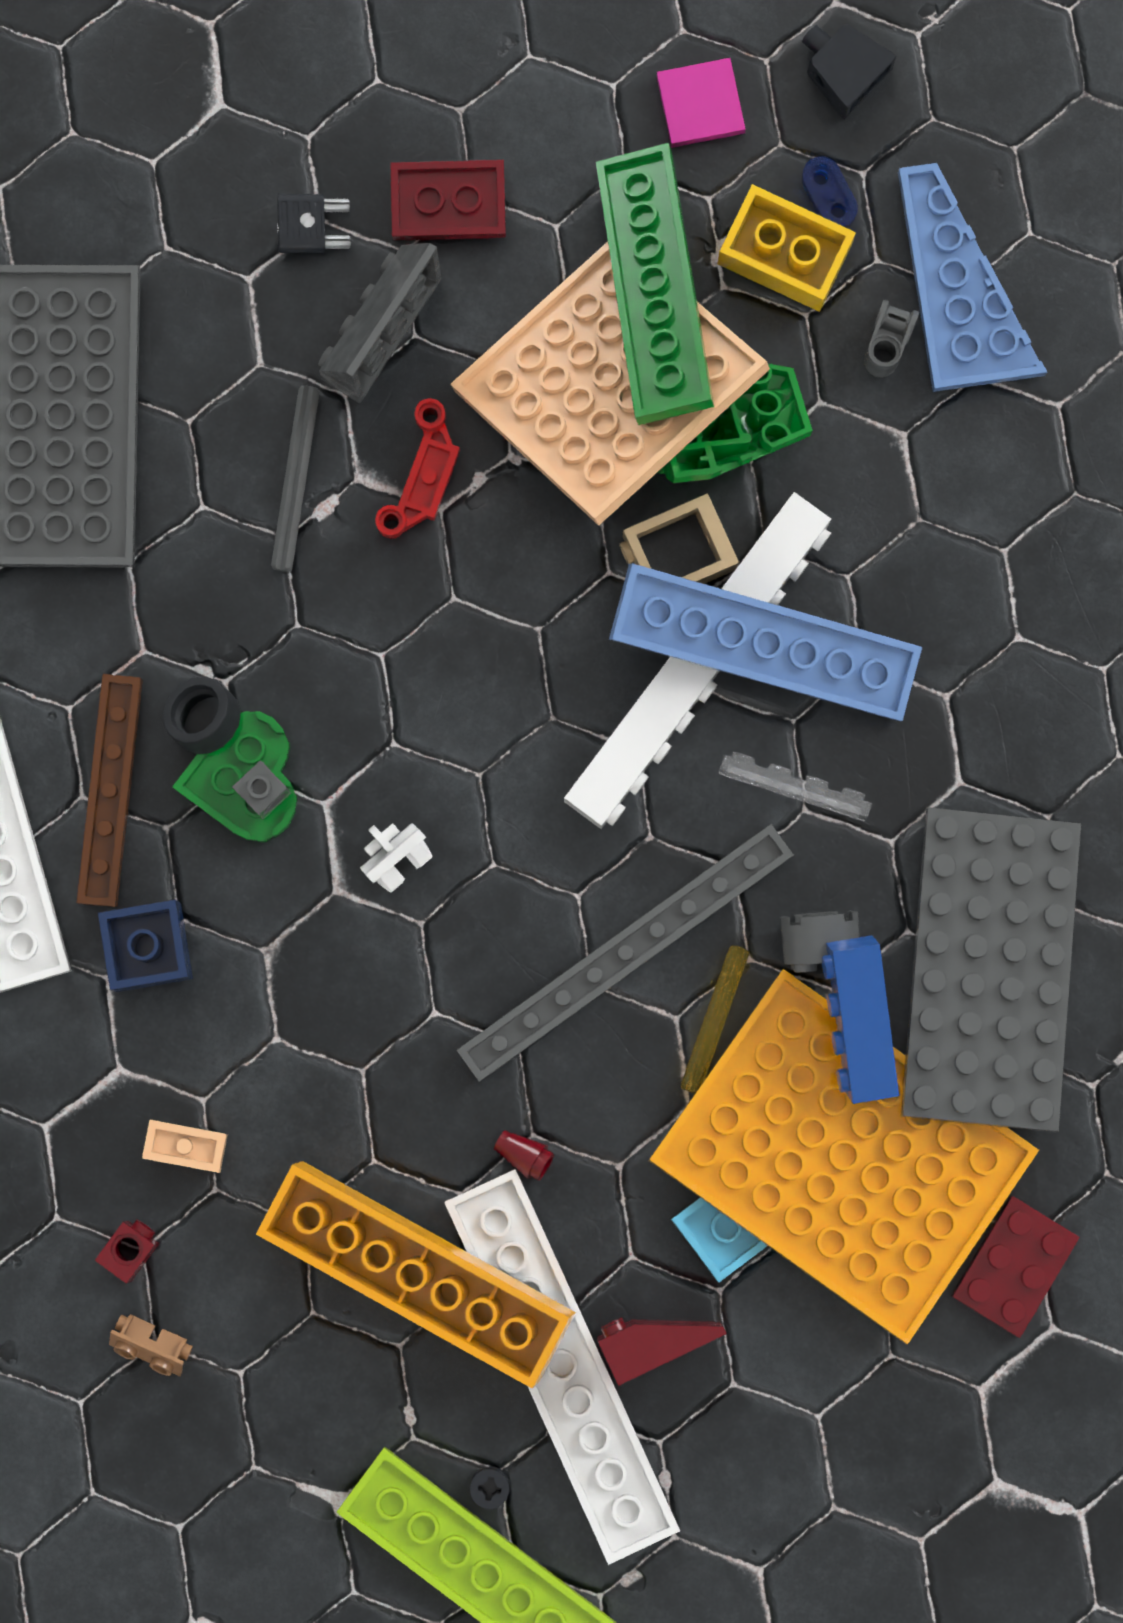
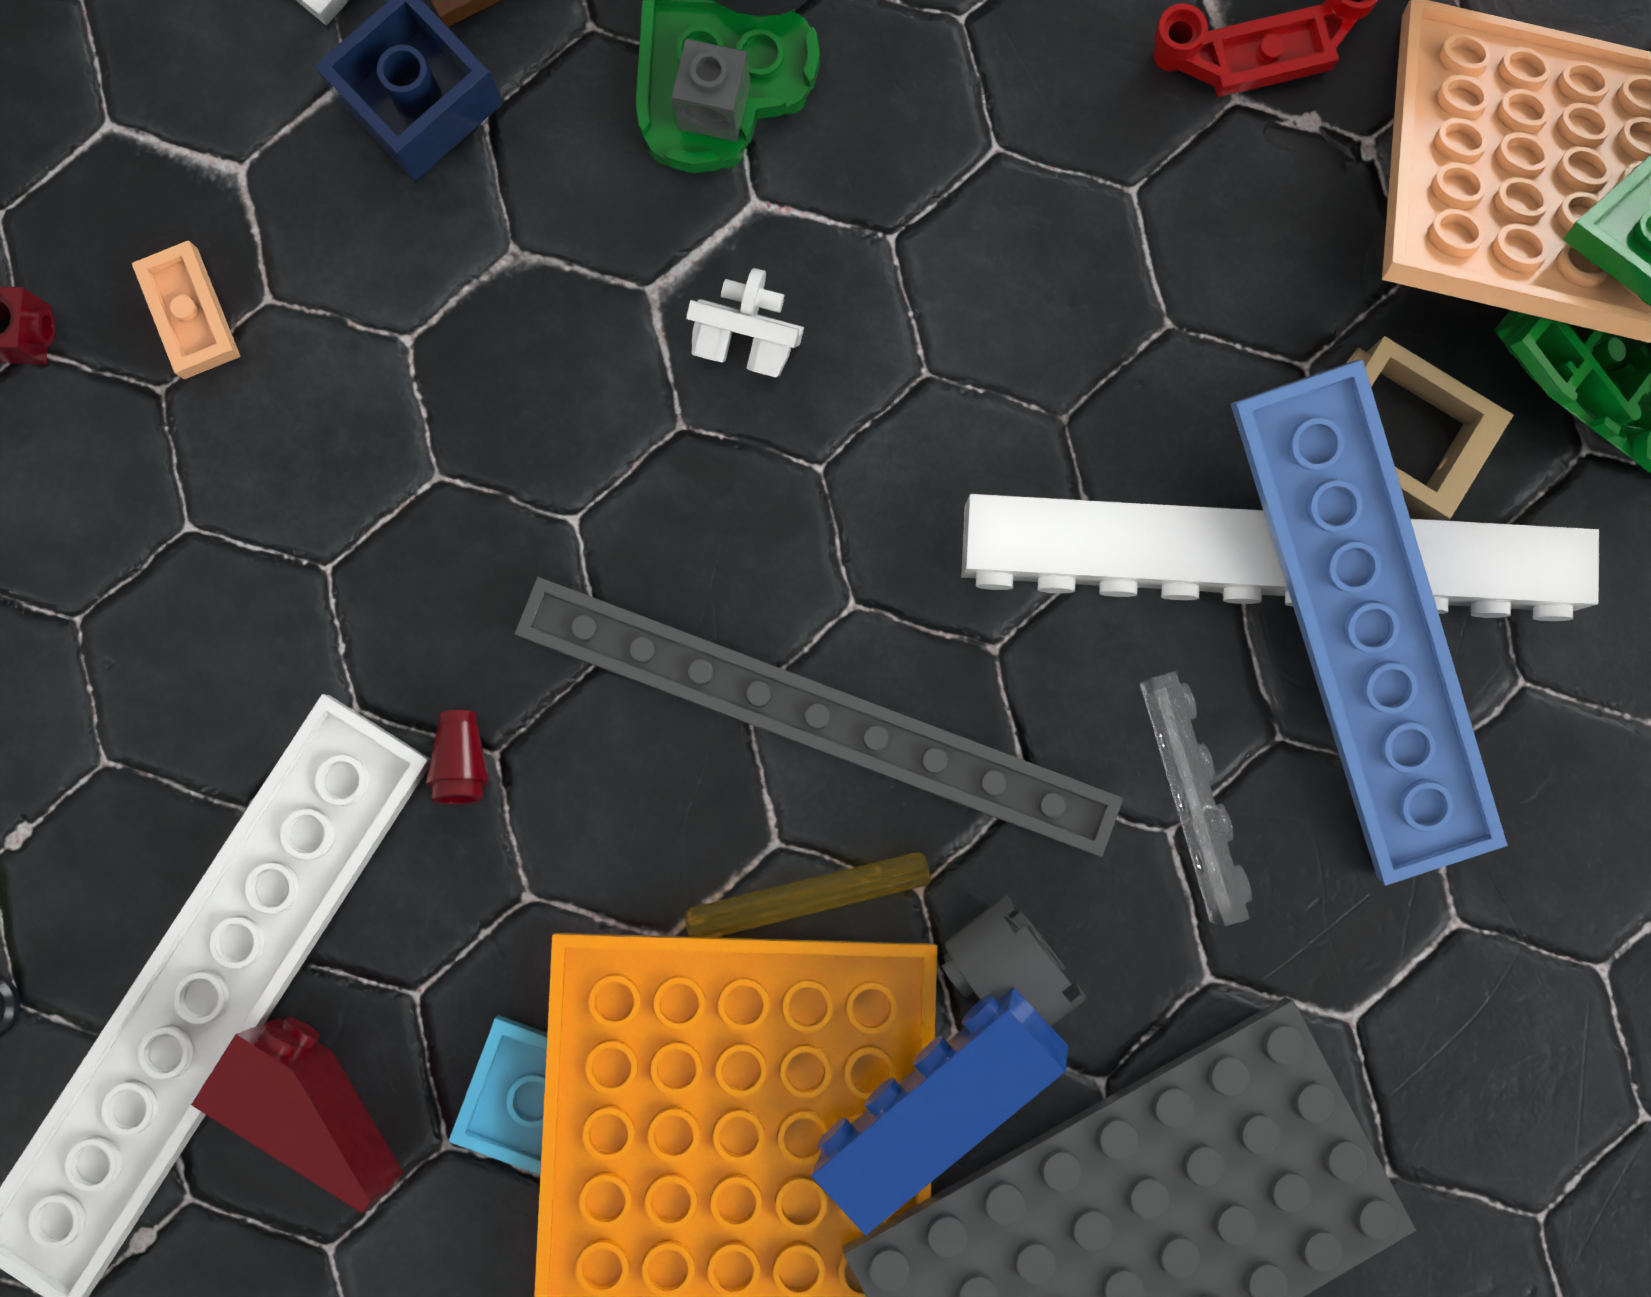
camera: 55 degrees right, 0 degrees up
(416, 1273) = (188, 722): light orange brick -> none

